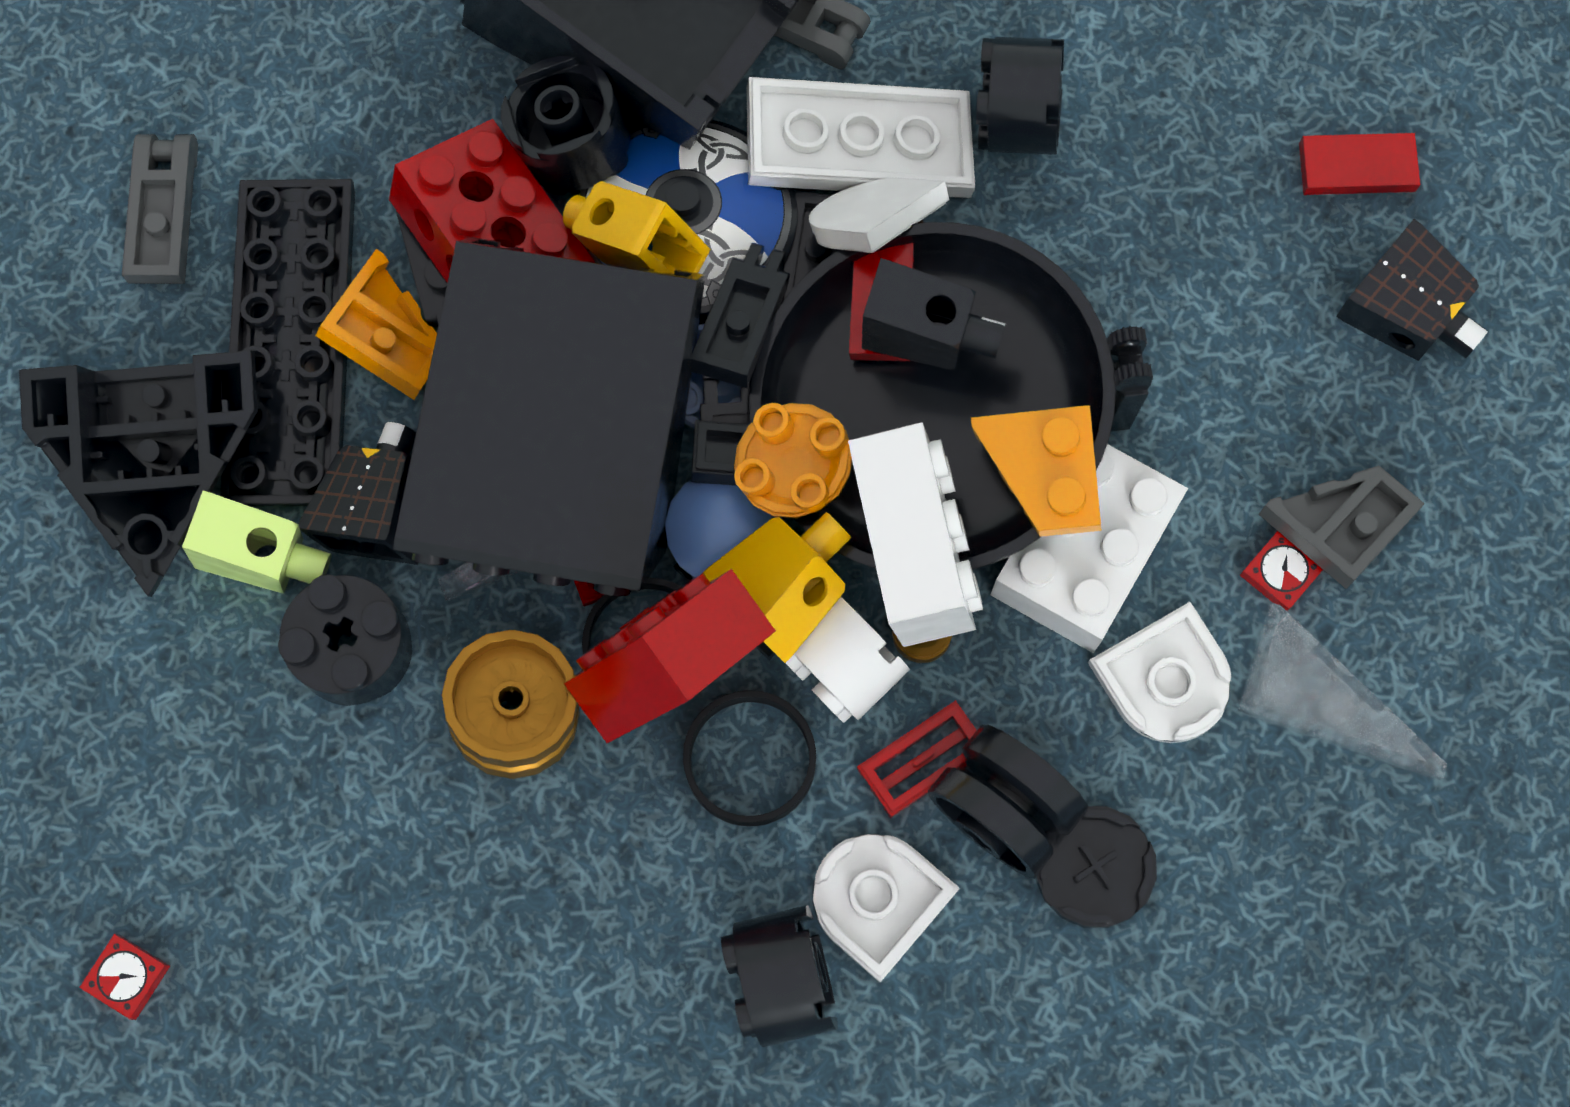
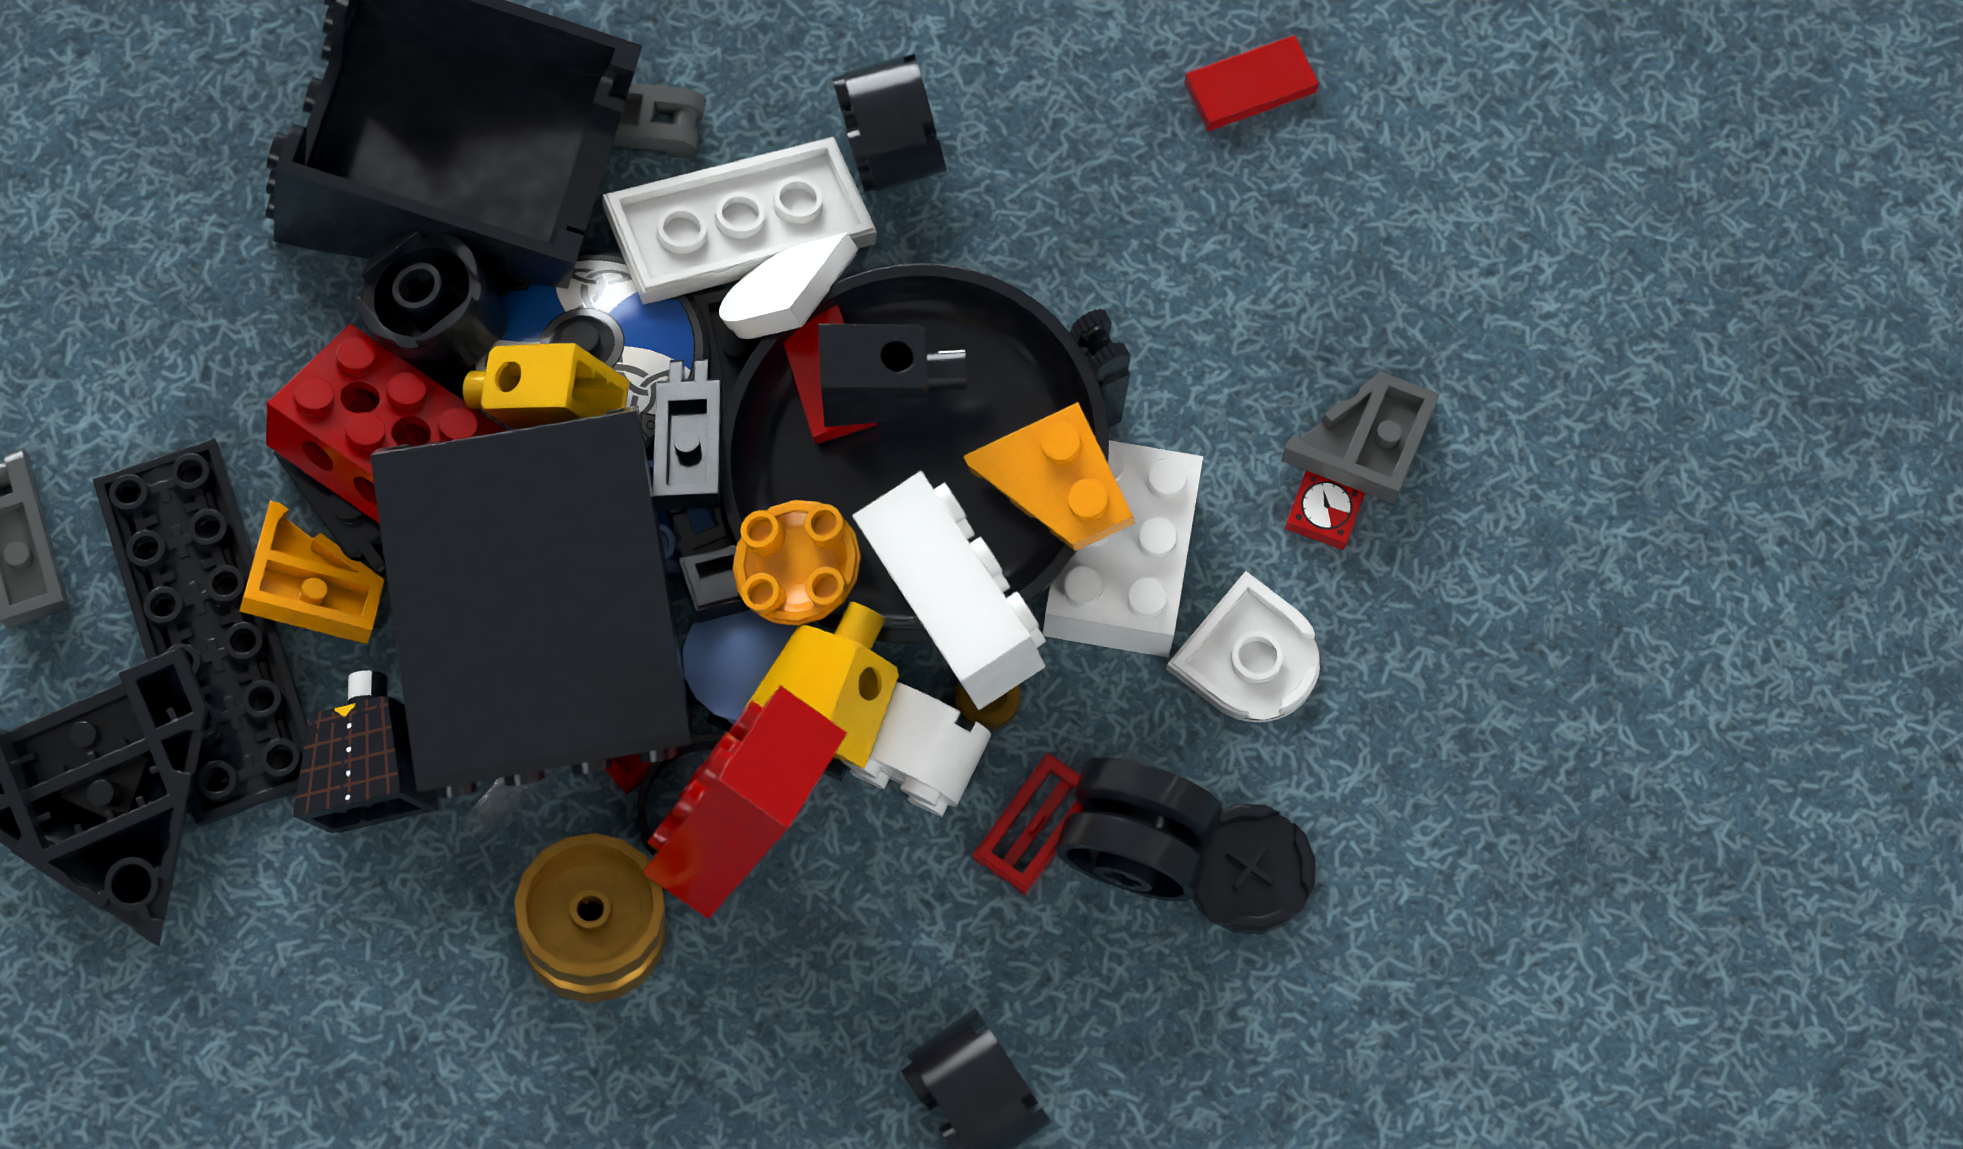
camera: 25 degrees left, 5 degrees down
(228, 535) = (224, 847): yellowish green torso -> none
(340, 608) = (367, 885): black brick -> none
(743, 697) = (850, 820): black tyre -> none
(878, 899) = (1043, 981): white tile -> none
(1312, 693) = (1397, 619): clear wing -> none
(1416, 298) = (1355, 195): black torso -> none

